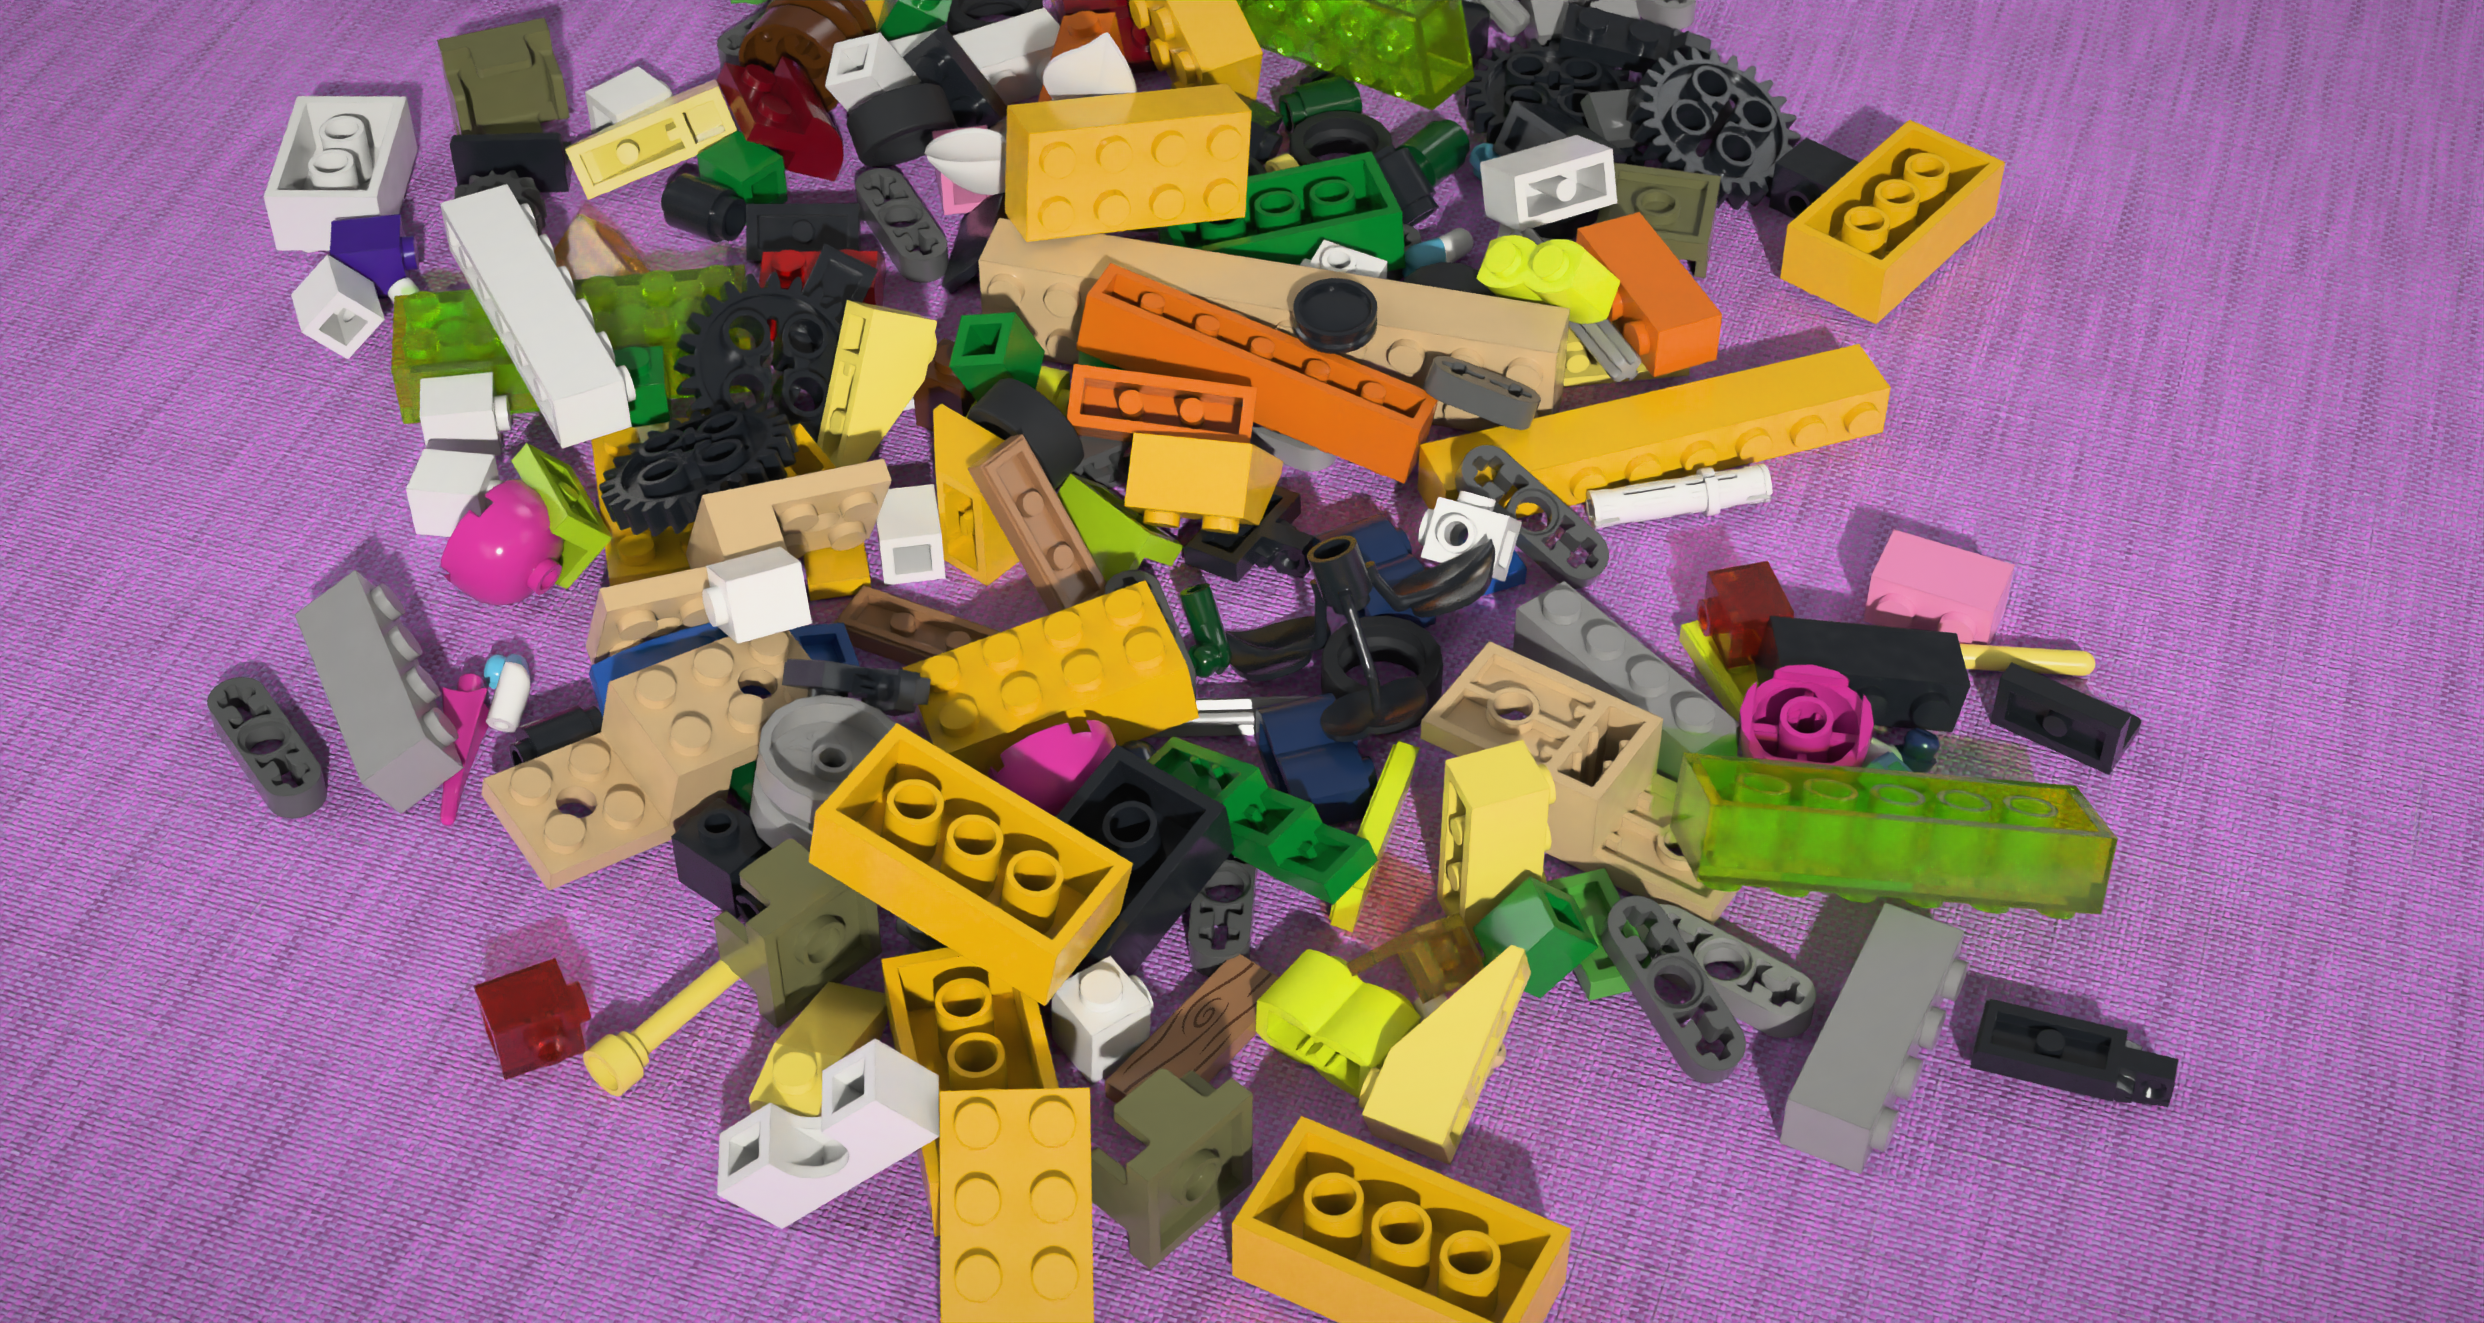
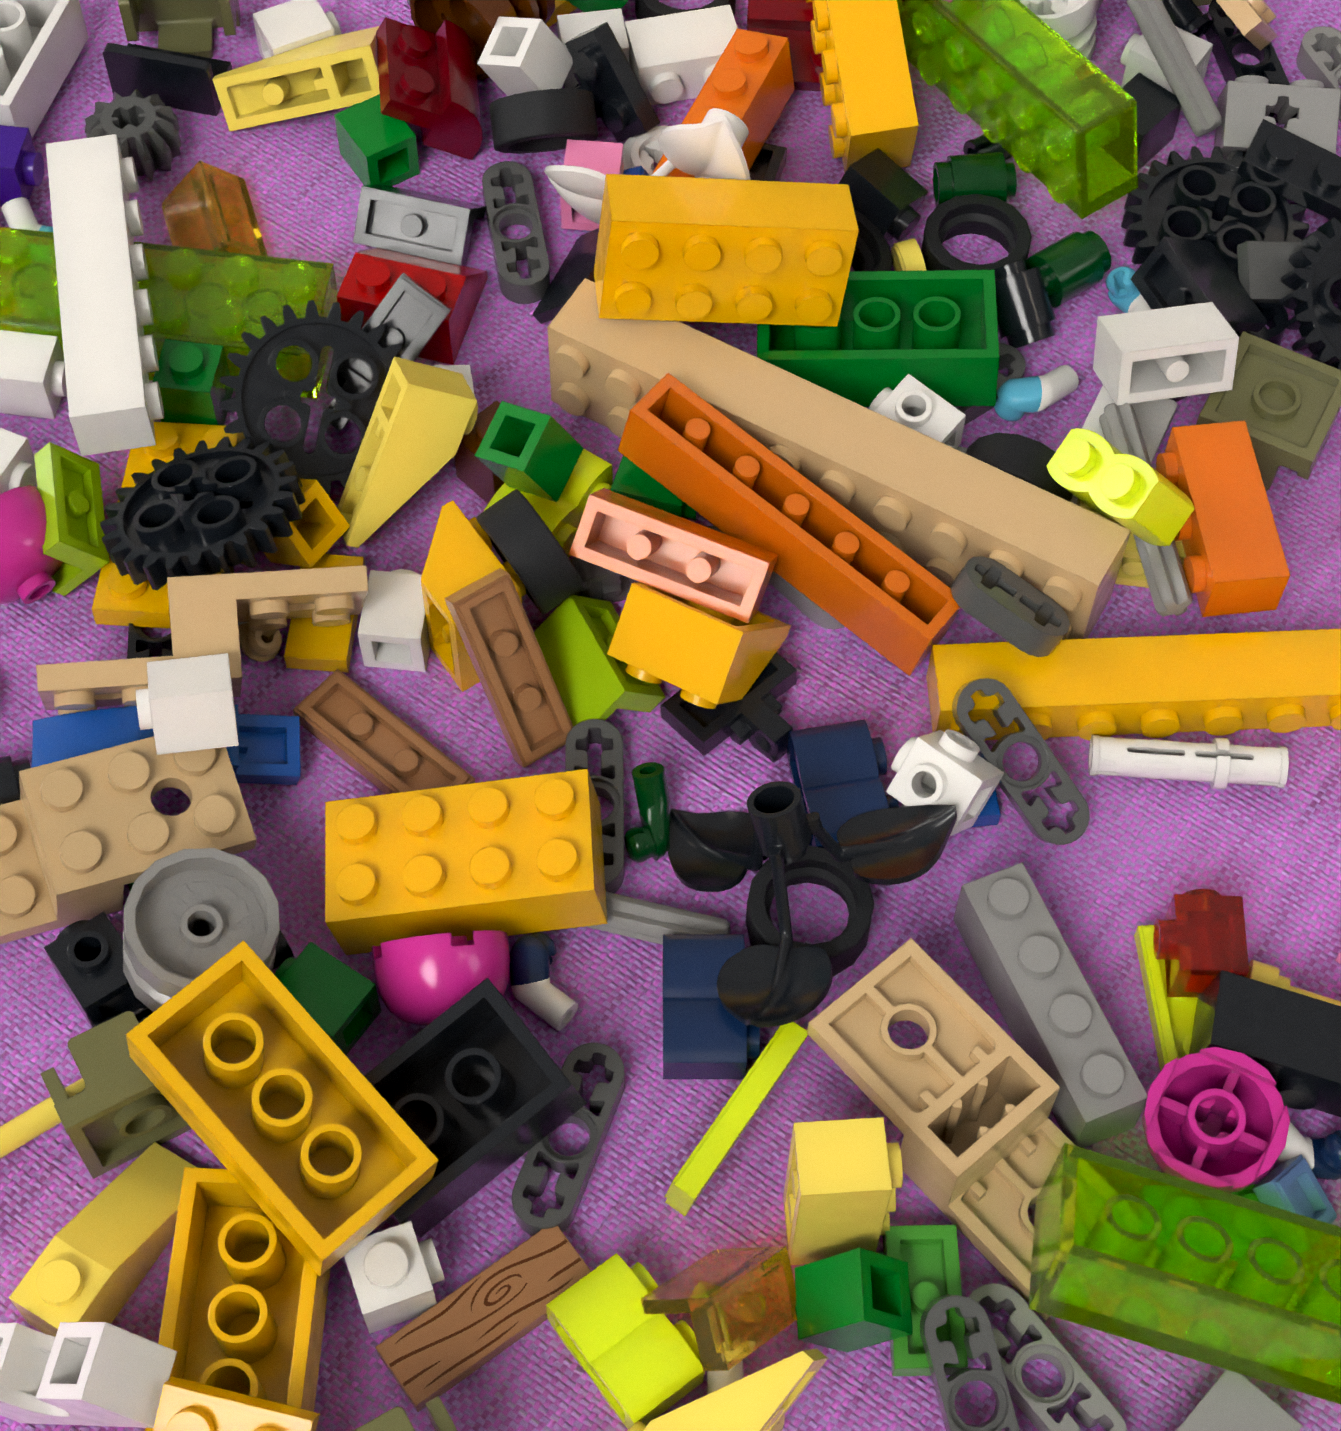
camera: 15 degrees right, 15 degrees up
(703, 208) = (327, 173): black brick -> none
(885, 689) = (274, 832): black hinge -> none
(1269, 826) = (614, 1079): green slope -> none
(1335, 315) = (881, 486): black piece -> none

